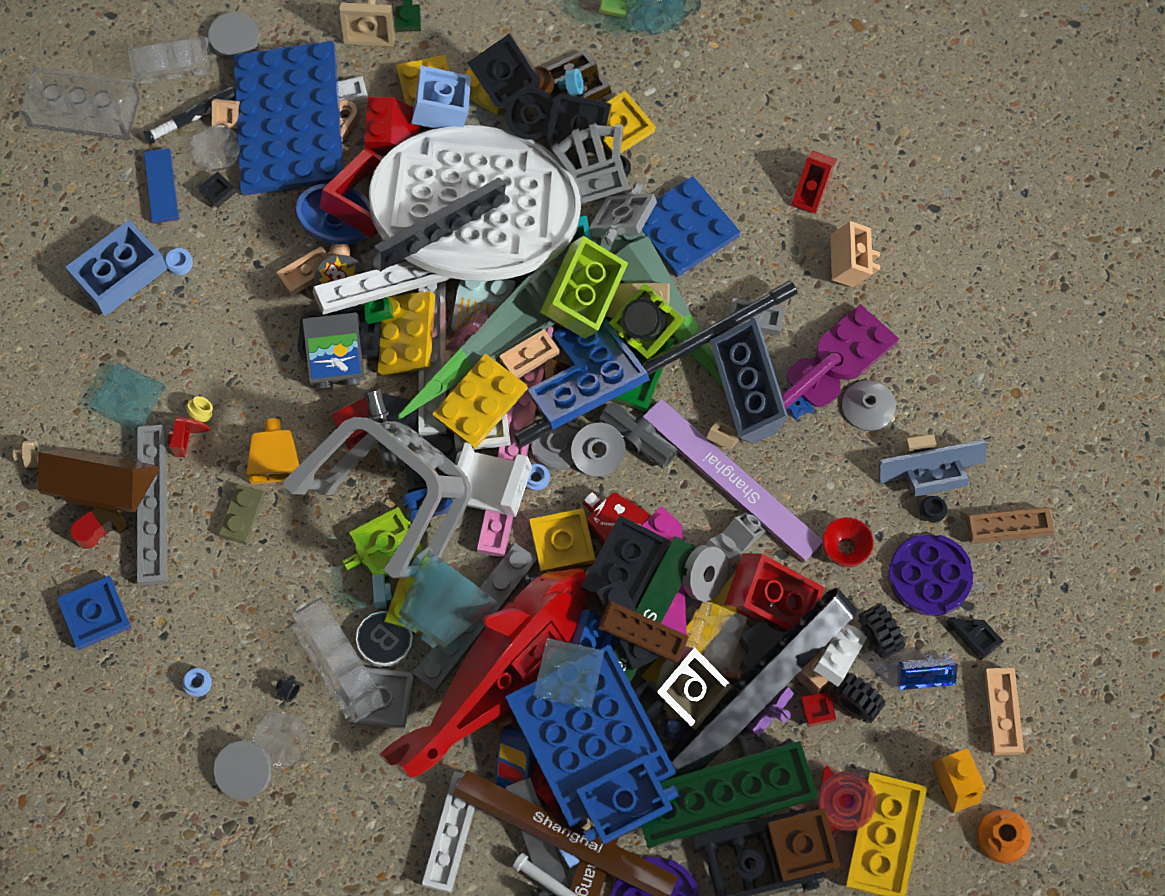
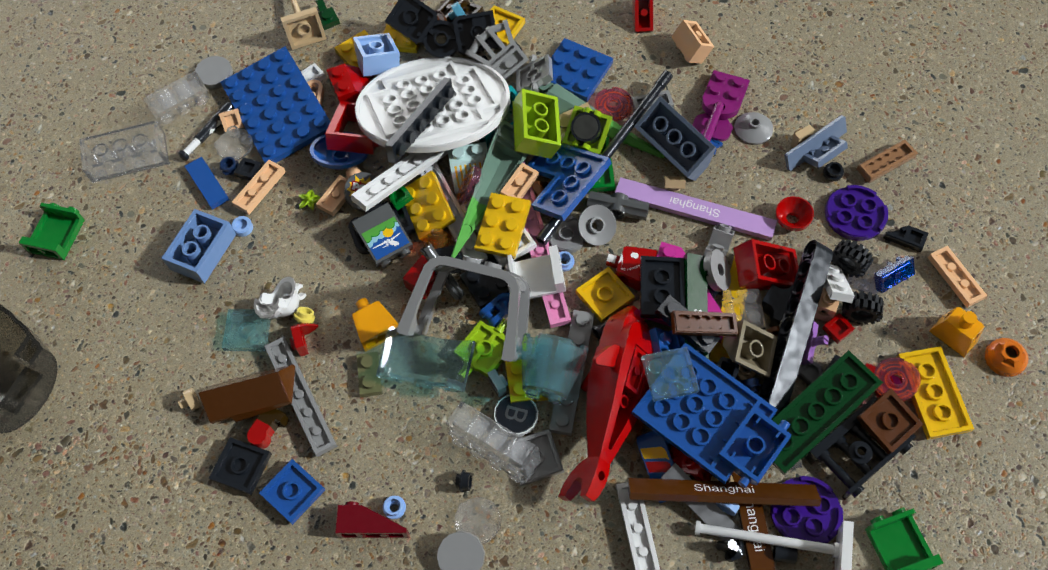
camera: 20 degrees left, 5 degrees down
(50, 557) = (240, 466): none -> black plate
(151, 682) = (360, 522): none -> dark red slope
(178, 381) = (281, 302): none -> white helmet
(193, 170) = (226, 163): none -> dark blue plate
(219, 218) = (258, 187): none -> light nougat plate
(272, 261) = (309, 199): none -> lime plant
(313, 527) = (426, 361): none -> clear light blue panel
(398, 383) = (438, 238): none -> clear orange plate
(703, 308) = (617, 95): none -> clear pink tile

